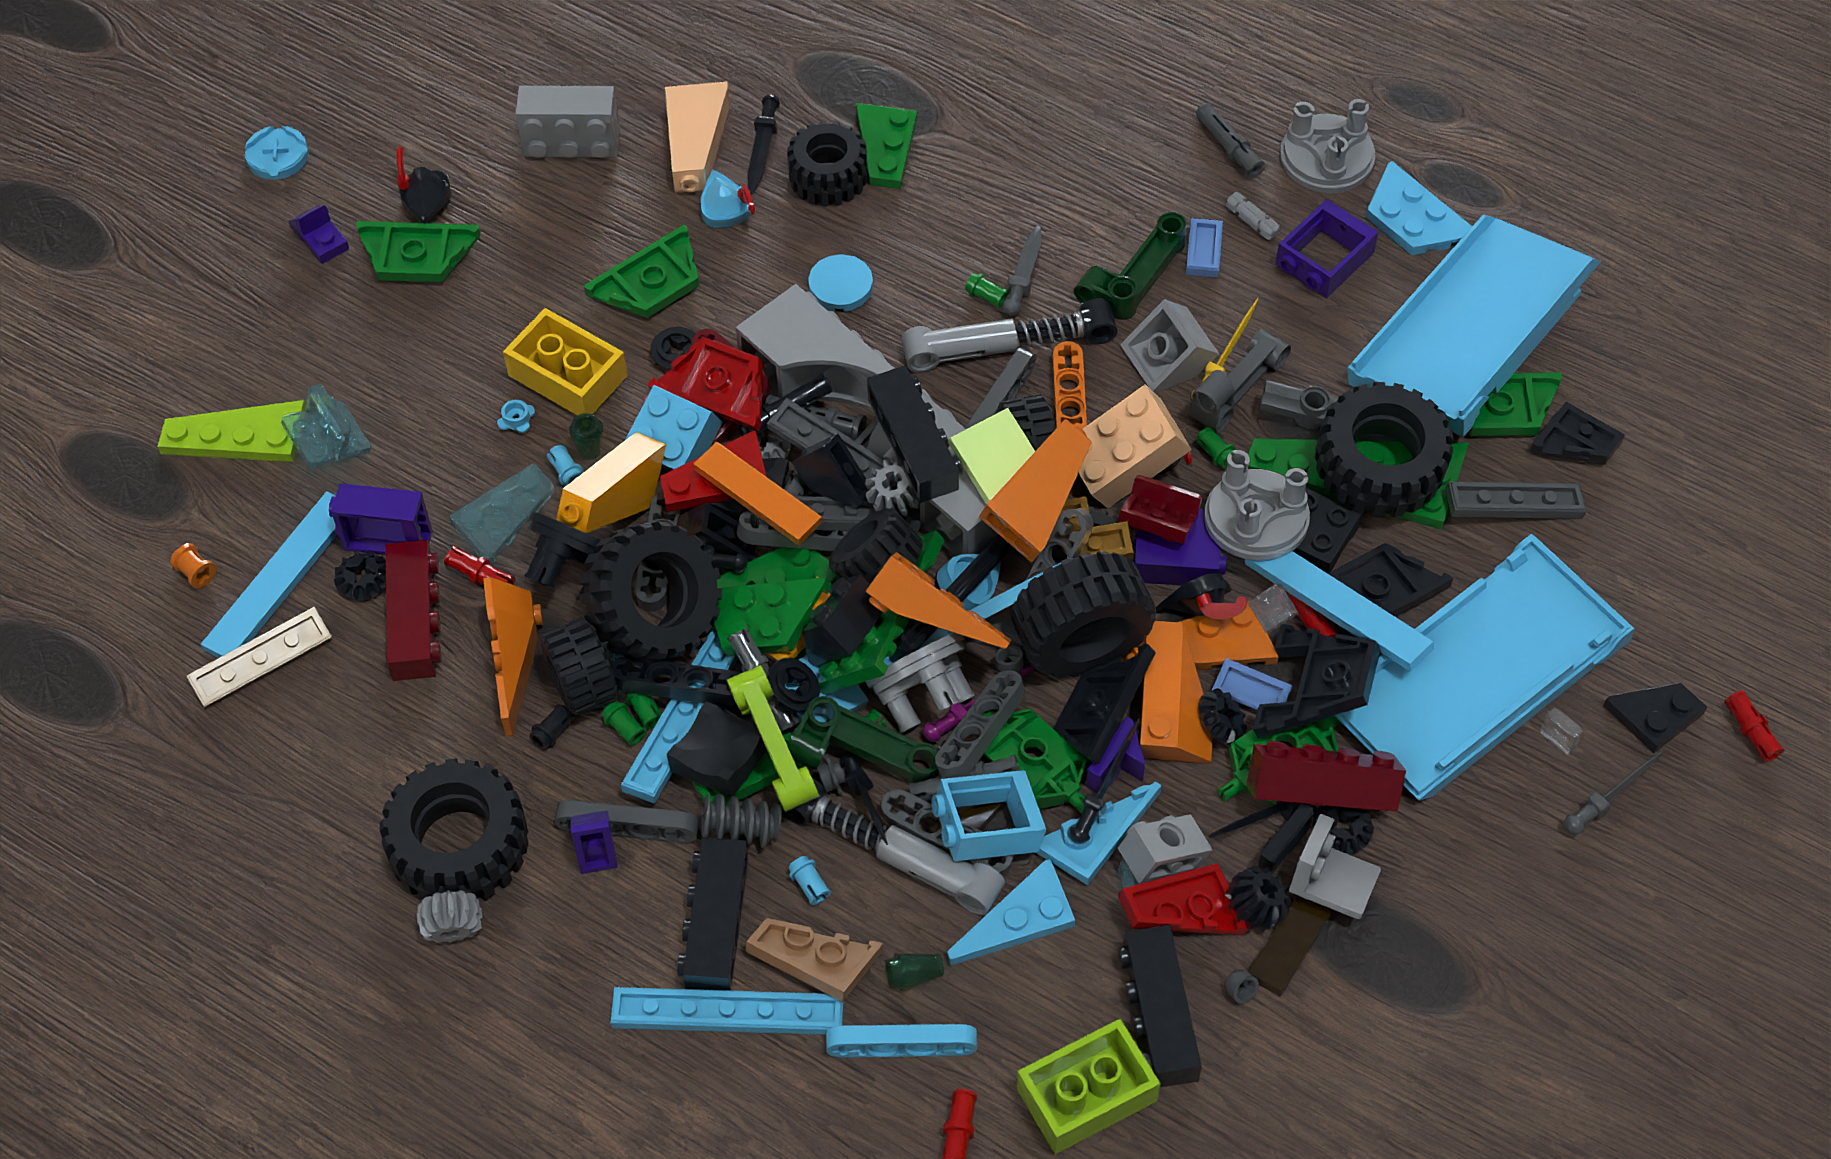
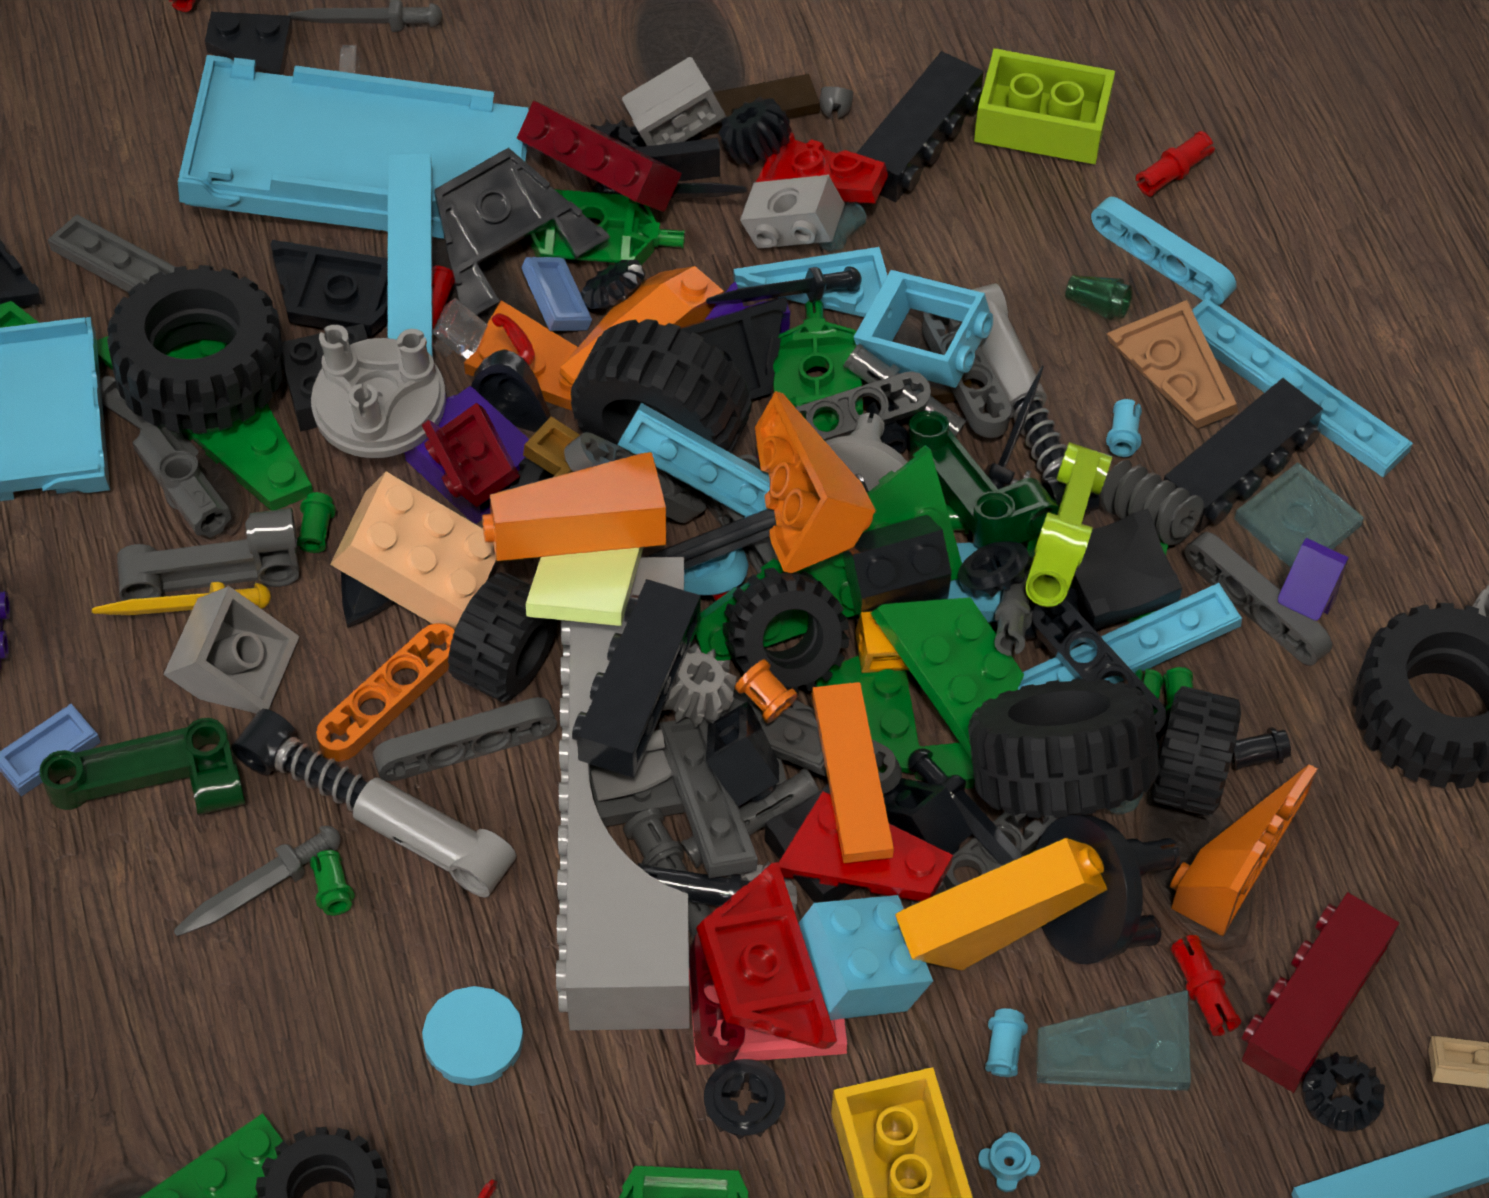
camera: 140 degrees left, 0 degrees up
(378, 503) = (1288, 1107): dark purple window -> none
(587, 435) = (957, 1037): clear green cone -> none
(646, 910) = (1297, 509): none -> clear light blue tile
(848, 503) = (766, 691): none -> orange bush
(1025, 914) = (972, 270): medium azure wing -> none

